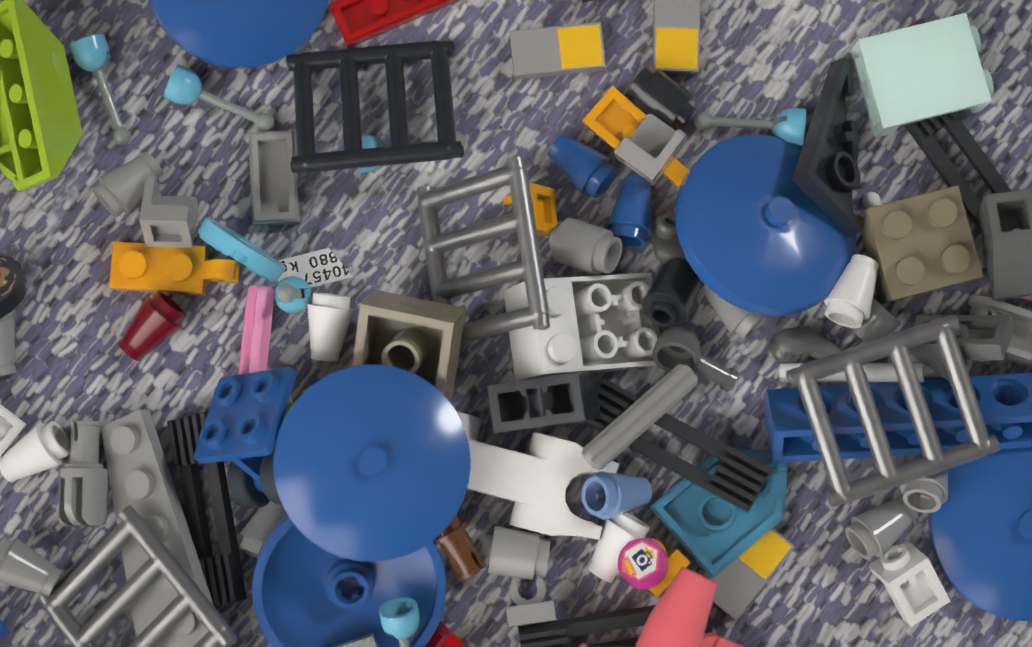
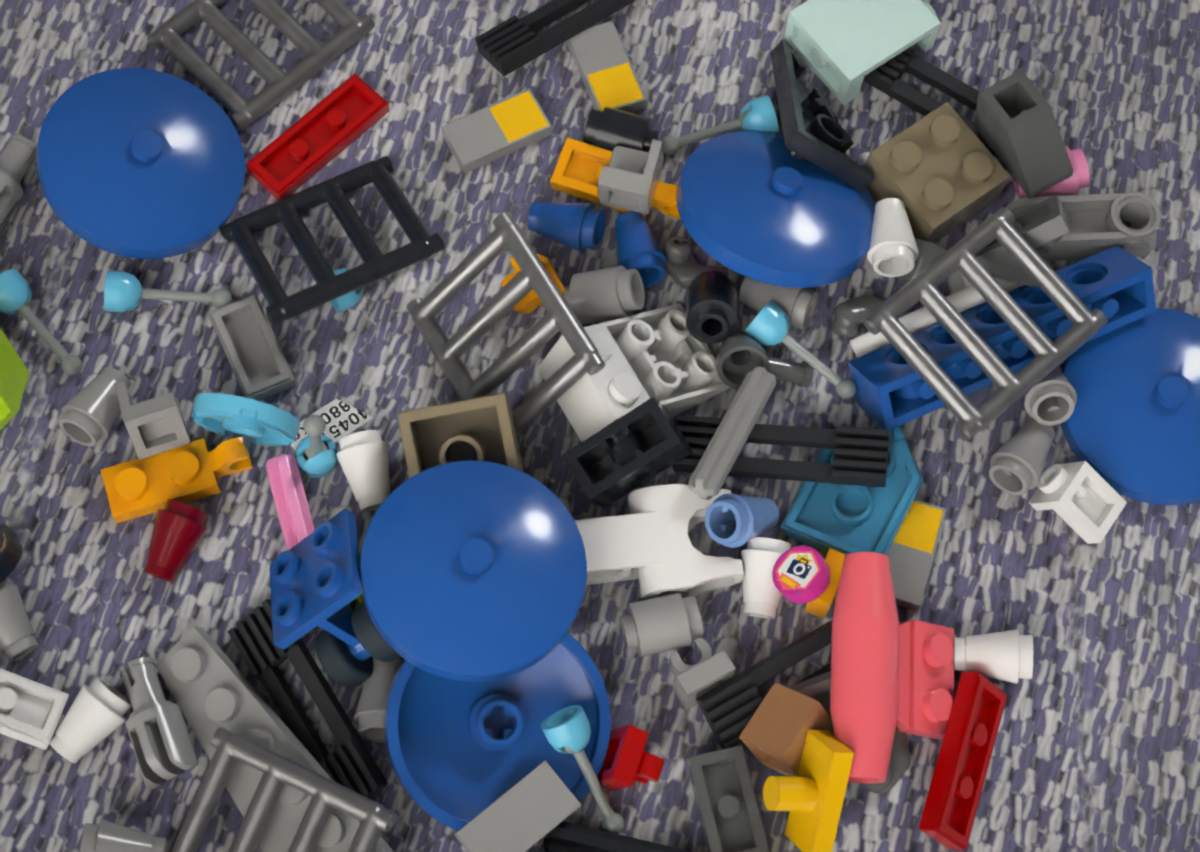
camera: 25 degrees left, 15 degrees down
(460, 549) = (601, 634): reddish brown axle -> none
(714, 333) = (773, 327): none -> hinge

